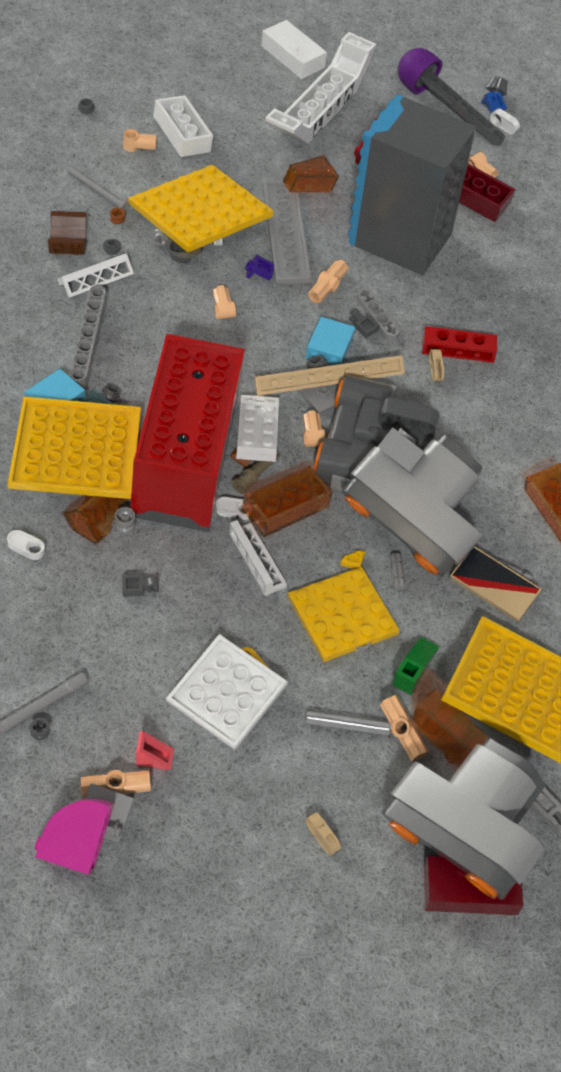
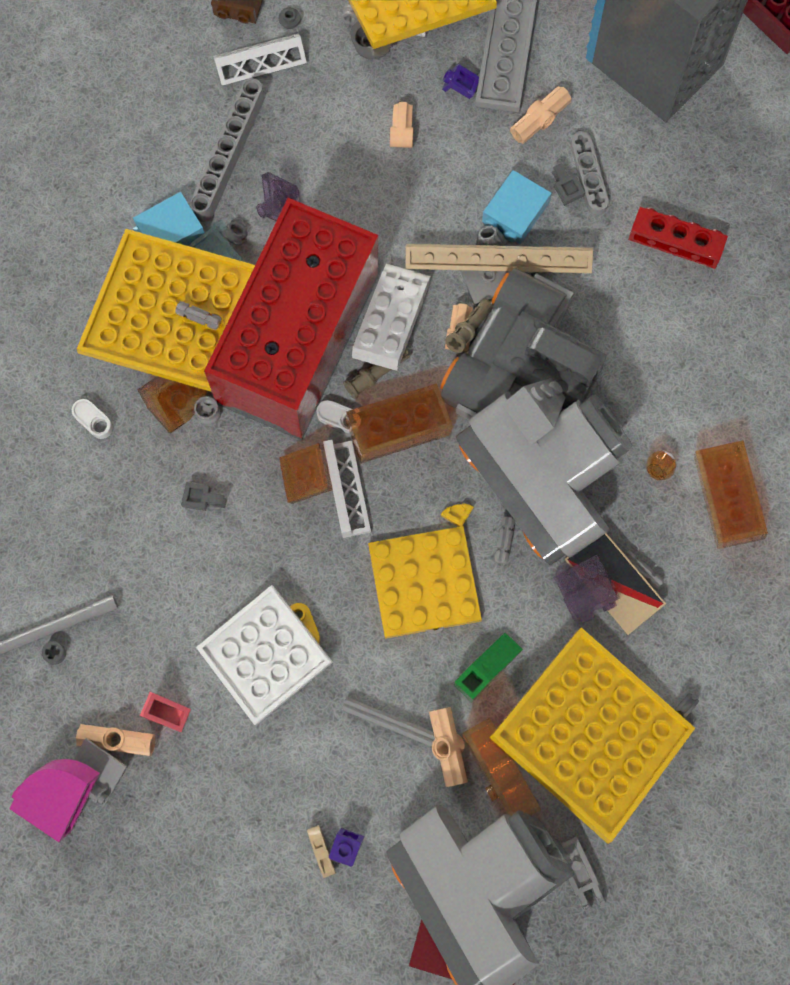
camera: 25 degrees right, 20 degrees up
(104, 444) = (198, 315): none -> light grey axle
(143, 361) = (275, 195): none -> clear purple plate
(221, 550) = (305, 473): none -> clear orange plate
(321, 425) = (465, 330): none -> dark tan pin
(344, 822) = (346, 847): none -> dark purple bracket
(436, 365) = (639, 262): tan piece -> none
(476, 591) = (587, 589): none -> clear purple plate
(502, 495) = (661, 465): none -> clear orange piece

